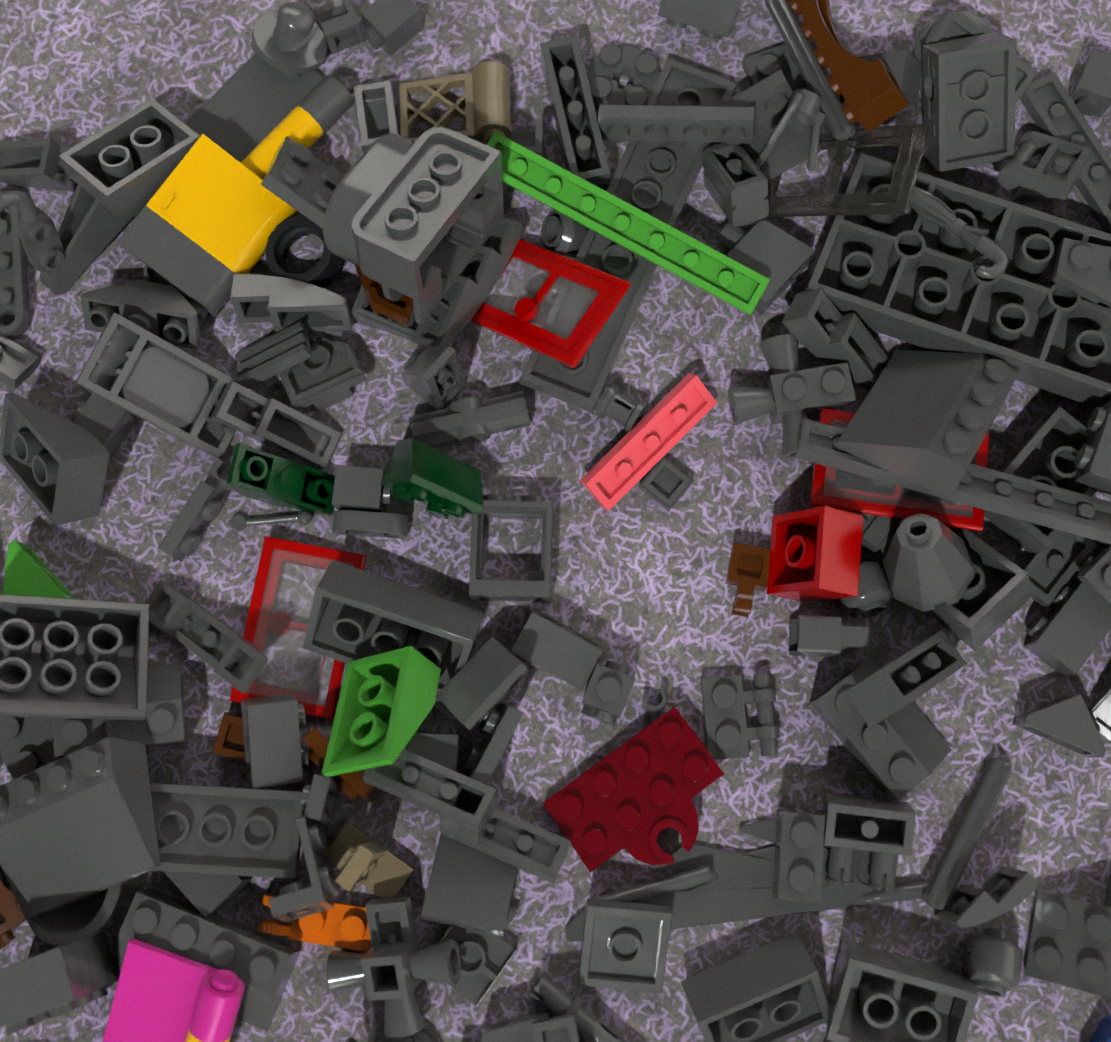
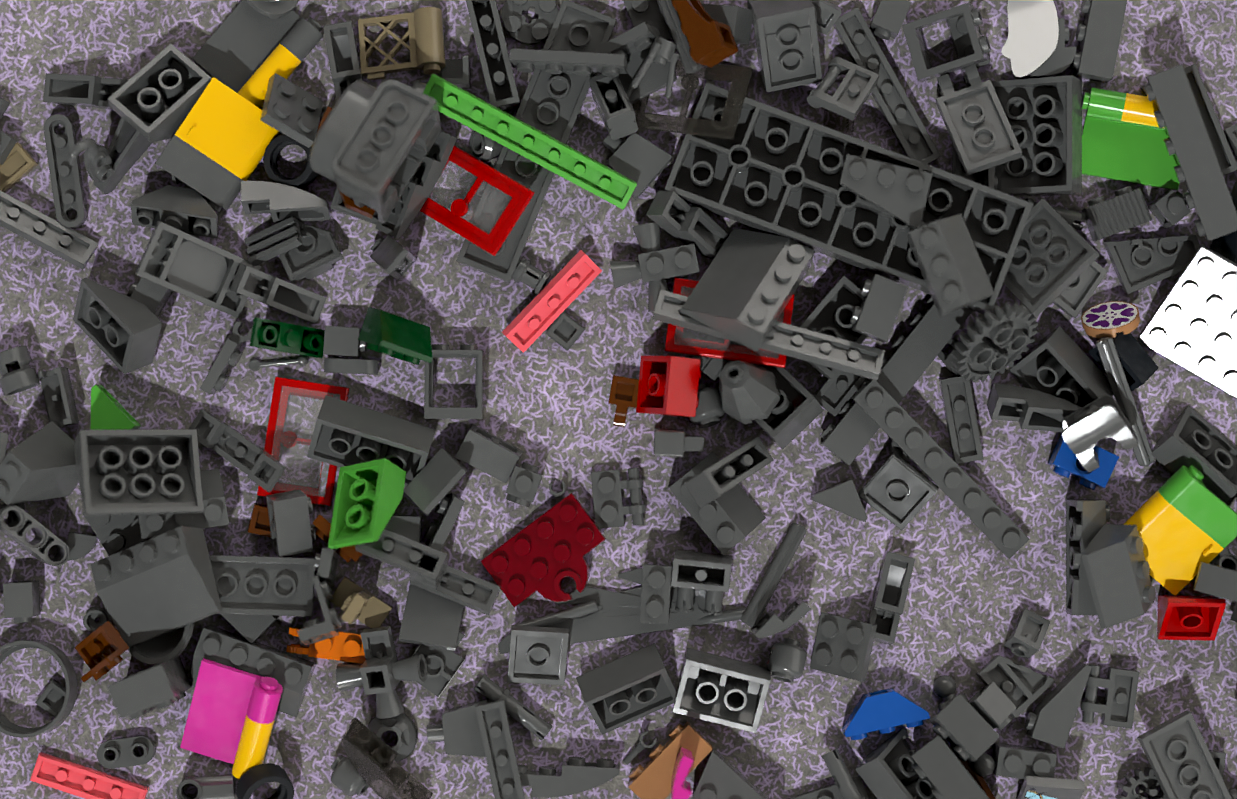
camera: 10 degrees left, 10 degrees up
(470, 420) = (420, 288): dark grey piece -> none
(973, 238) = (782, 153): dark grey piece -> none

